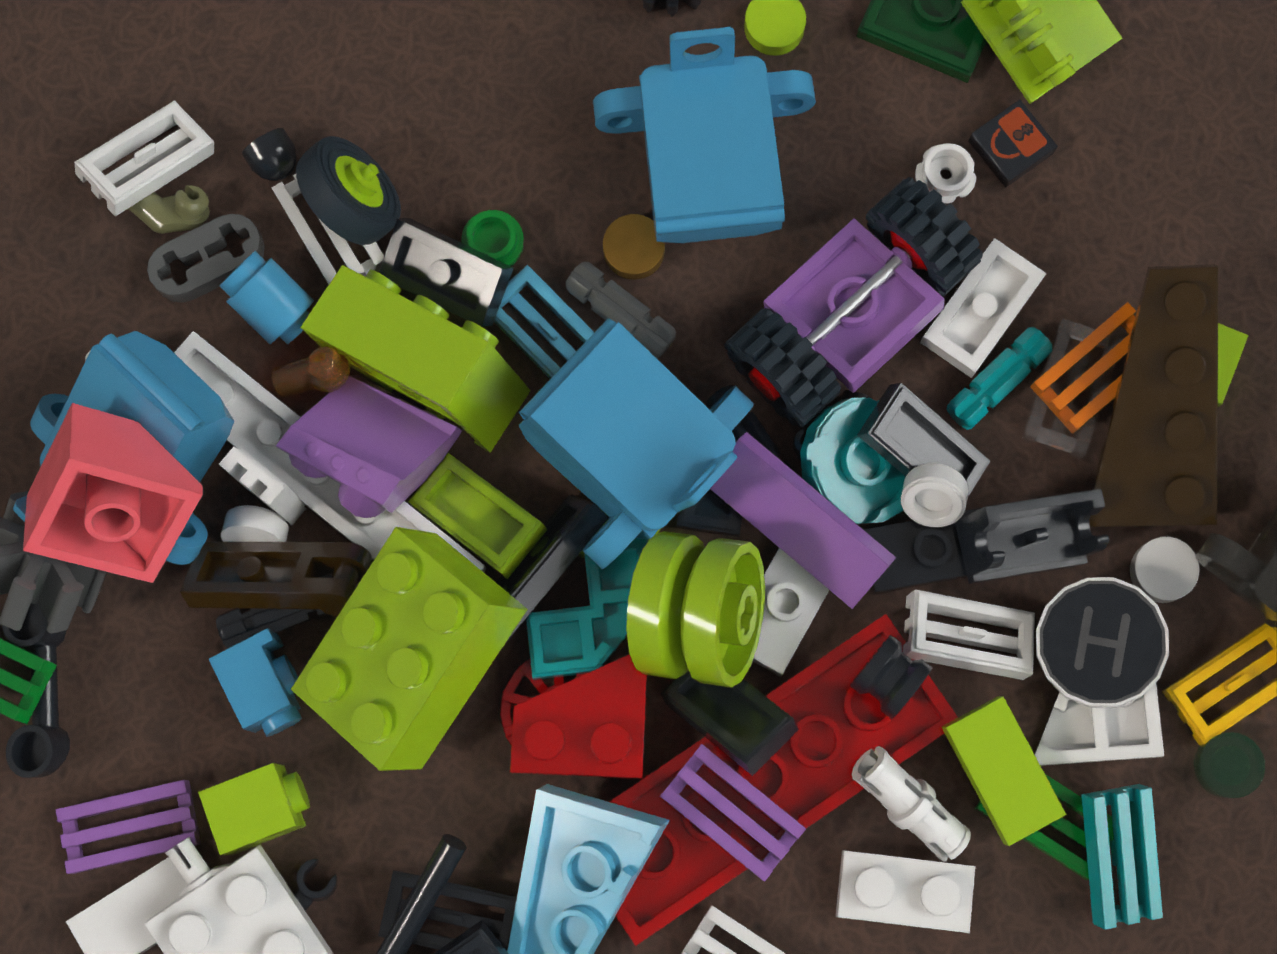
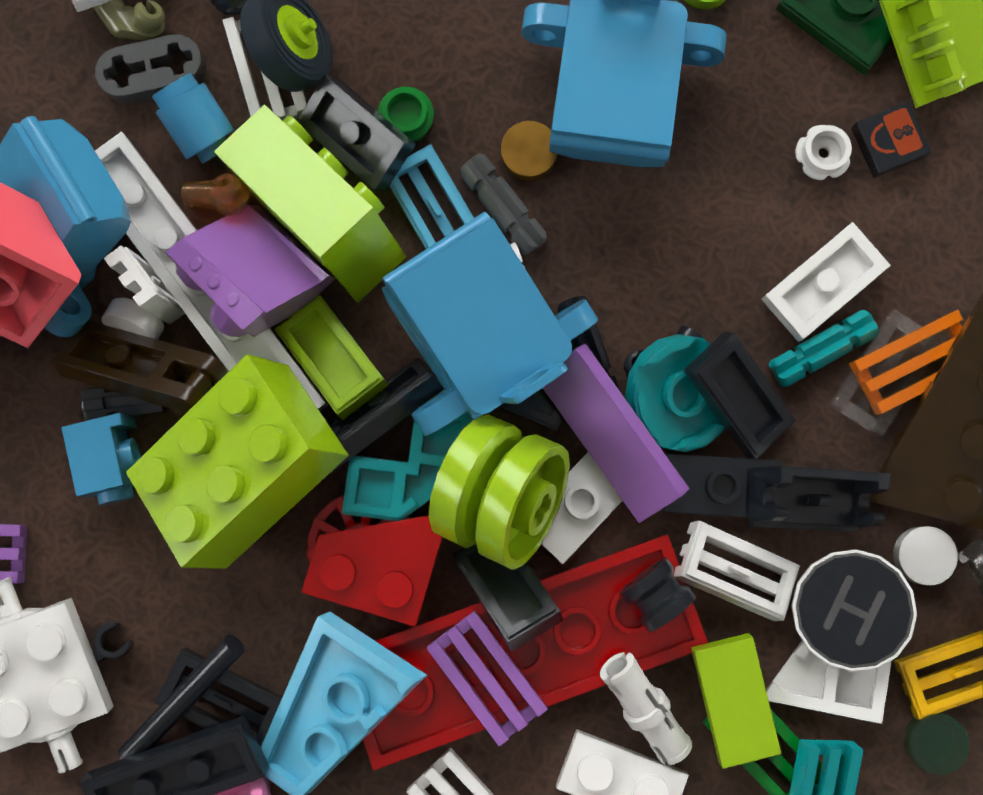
camera: 15 degrees right, 5 degrees up
(254, 808) = (73, 566): lime brick -> none
(855, 302) = (714, 249): plate -> none
(934, 495) = (738, 440): white tile -> none

